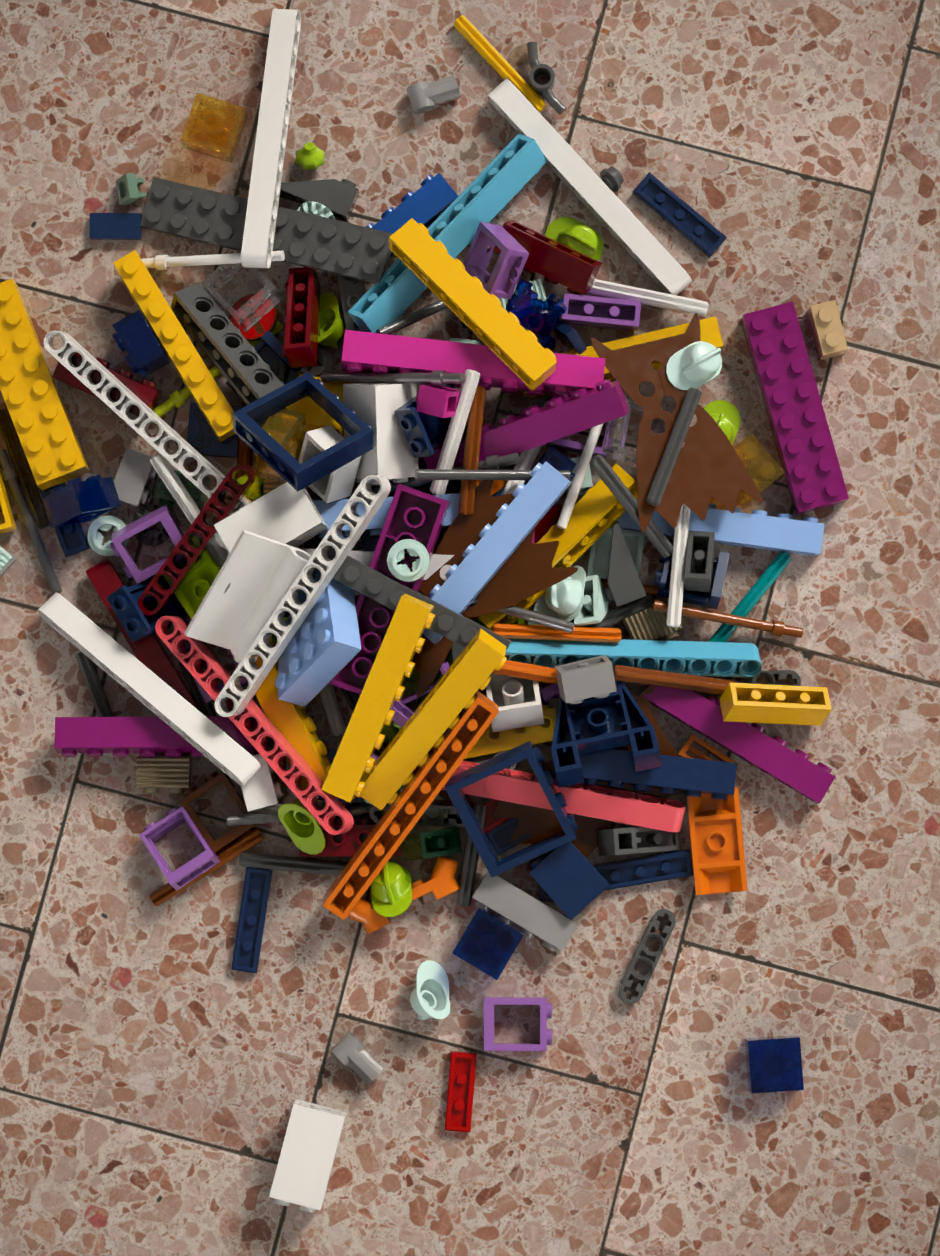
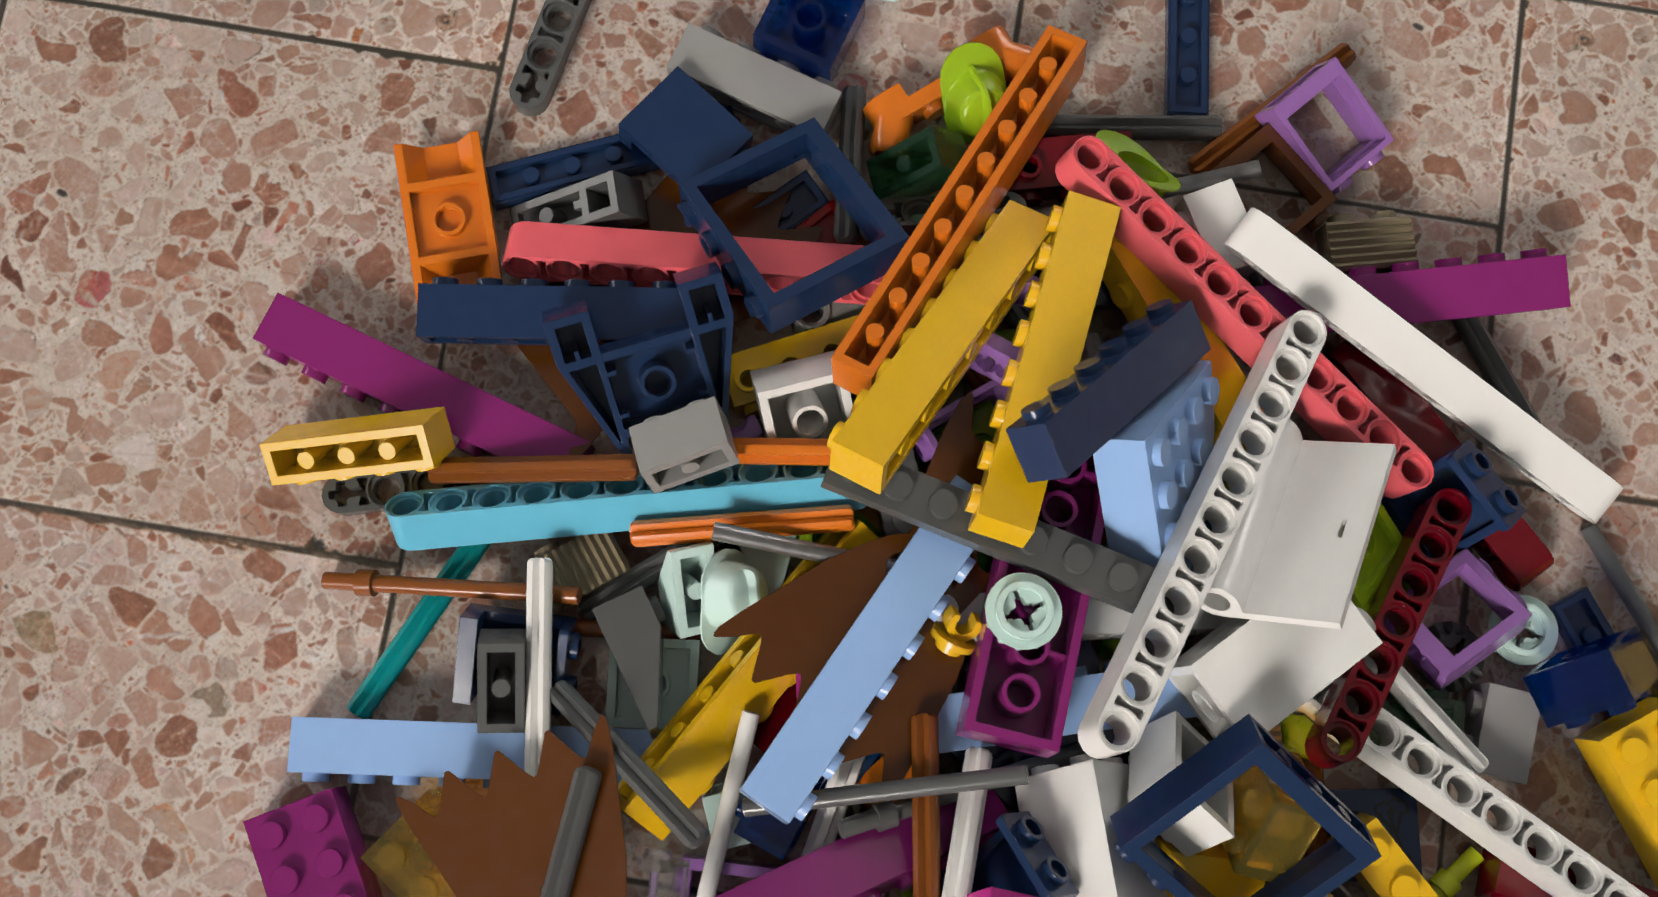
camera: 170 degrees right, 5 degrees down
(345, 676) = (1107, 391): none -> dark blue brick
(445, 554) = (954, 638): none -> yellow plate
(687, 746) = (508, 374): orange tile -> none

